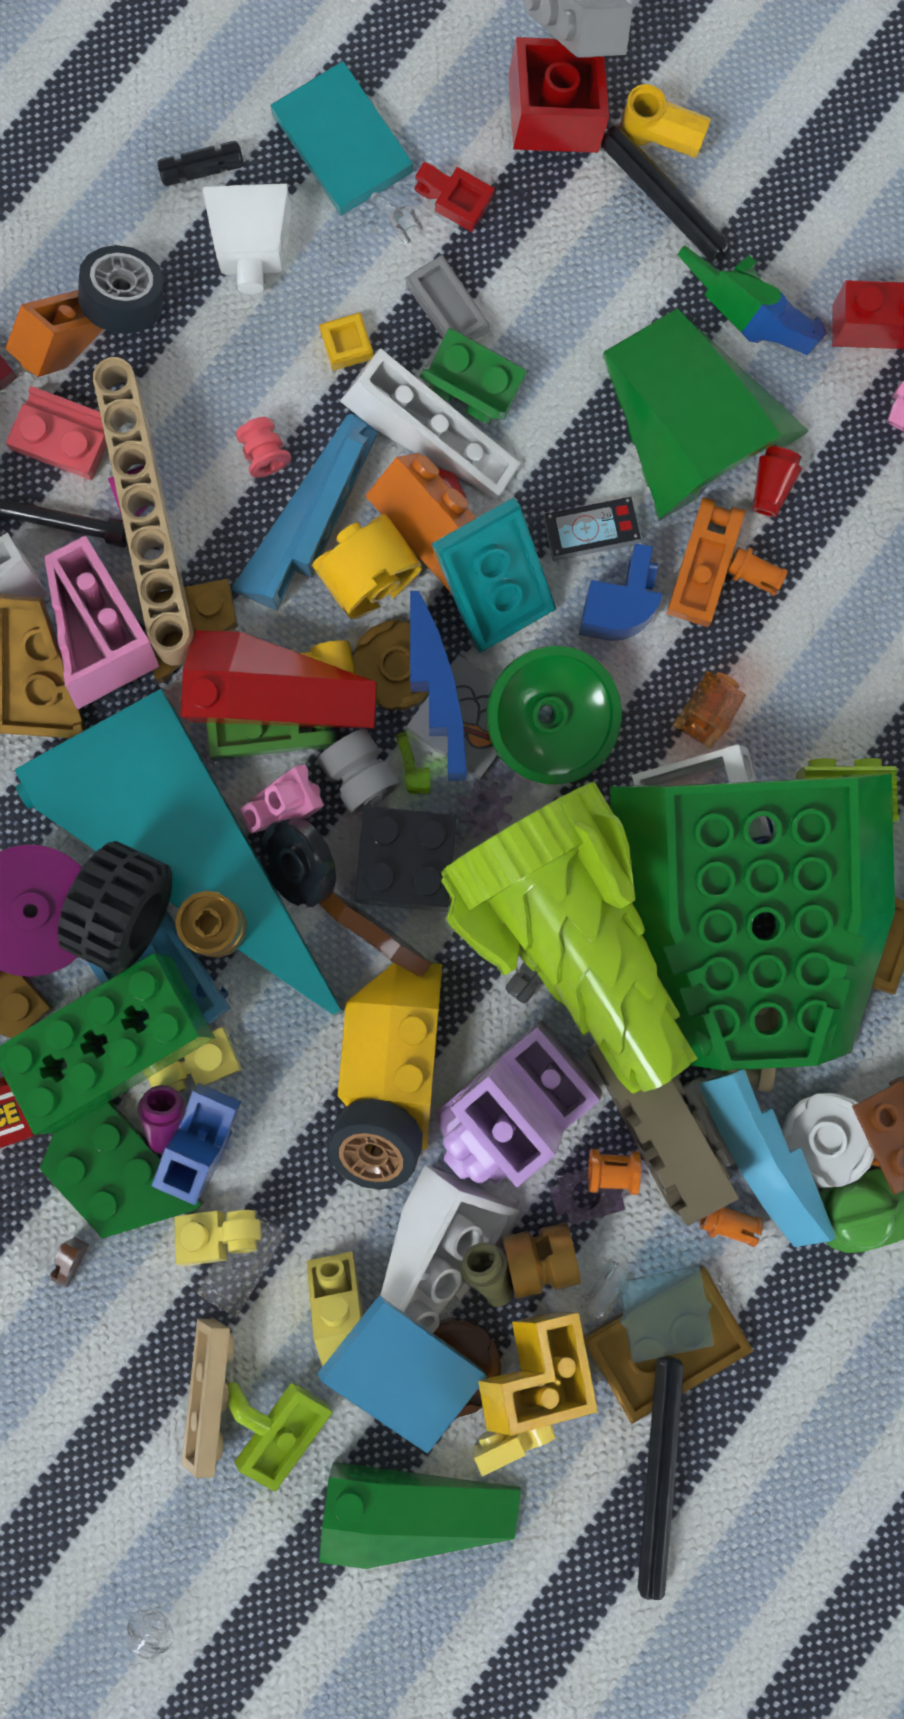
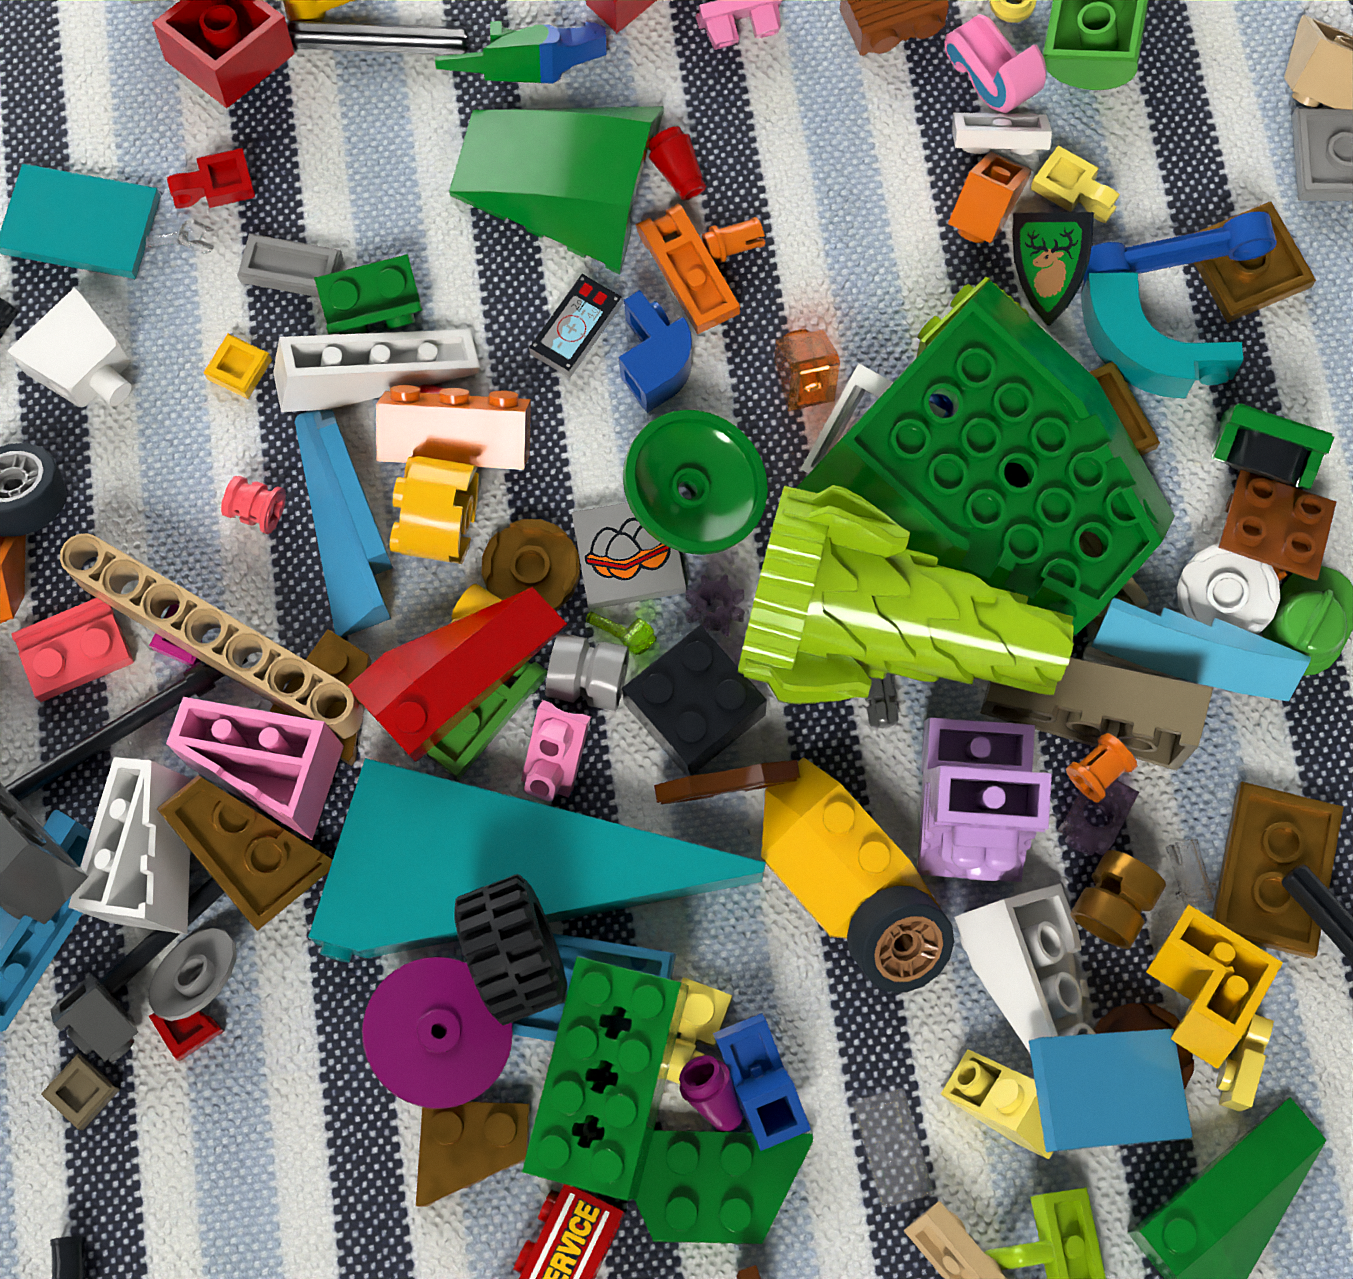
camera: 40 degrees left, 10 degrees down
(205, 1236) = (841, 1153): light yellow plate -> none
(211, 924) = (599, 889): pearl gold wheel -> none
(299, 861) = (613, 781): black tile -> none
(433, 674) = (570, 540): blue slope -> none
(488, 1273) = (1089, 948): olive cone -> none
(495, 575) = (543, 420): teal tile -> none
(665, 1313) = (1251, 843): clear light blue piece -> none
(733, 1226) = (1226, 729): orange pin -> none

